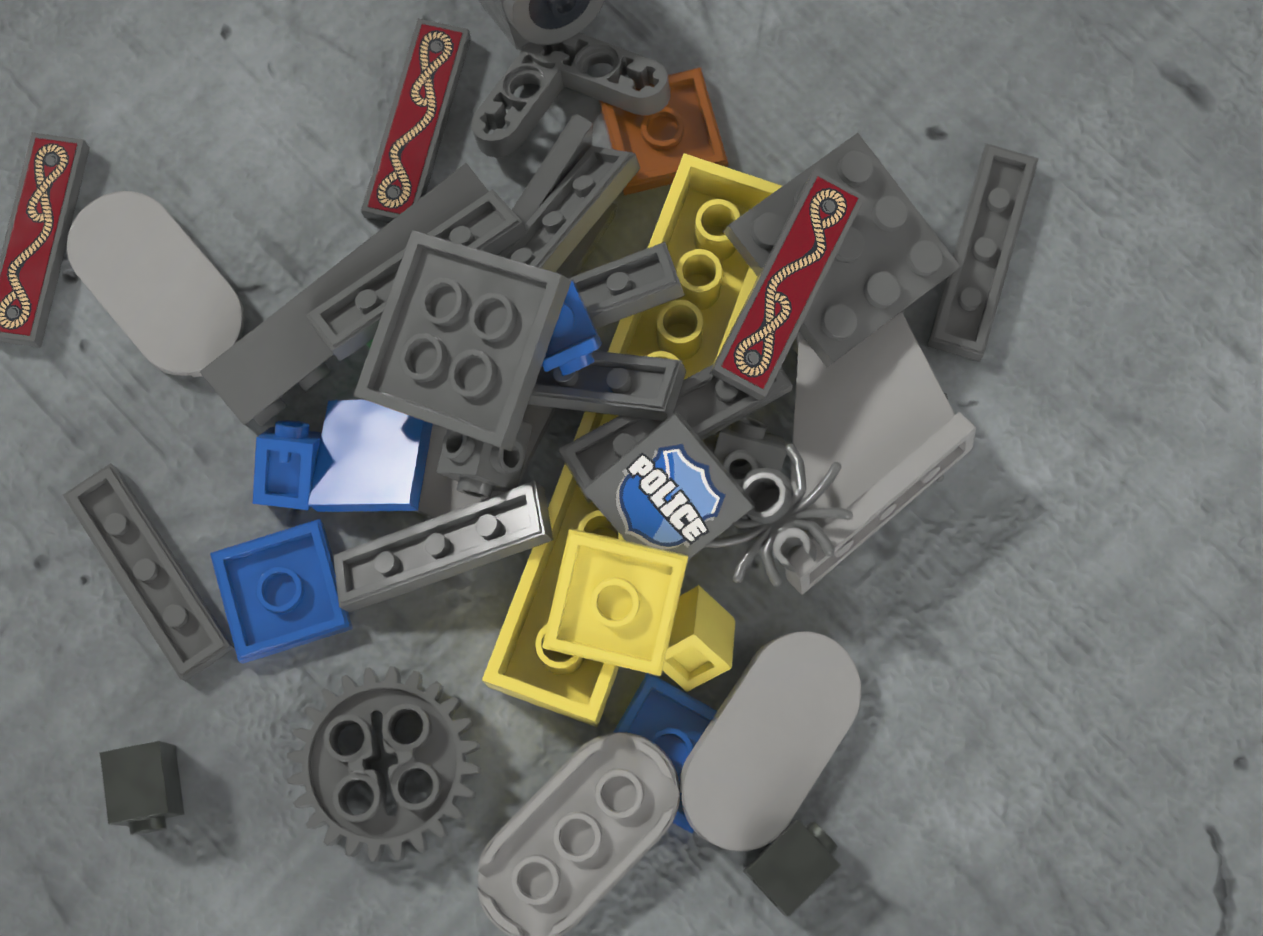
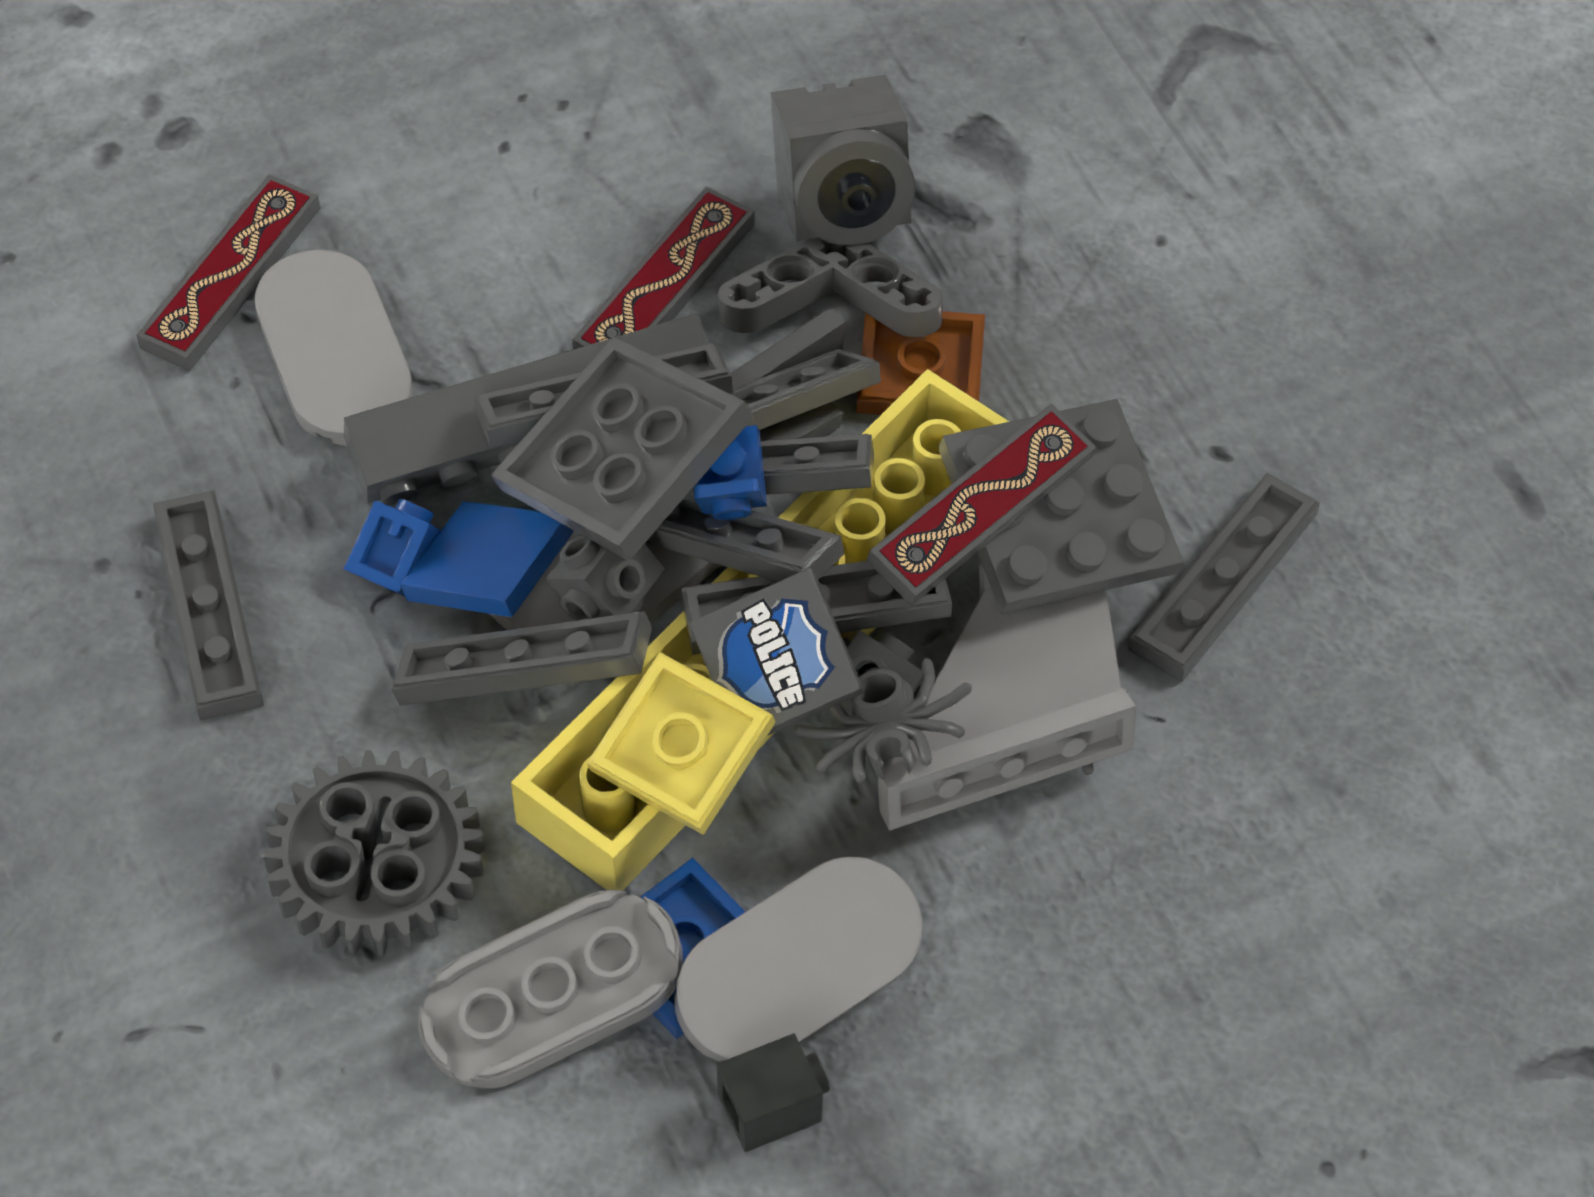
camera: 15 degrees right, 20 degrees down
(142, 786) = (114, 790): pearl dark grey brick -> none
(280, 591) = (335, 664): blue tile -> none
(699, 640) = (754, 839): light yellow panel -> none

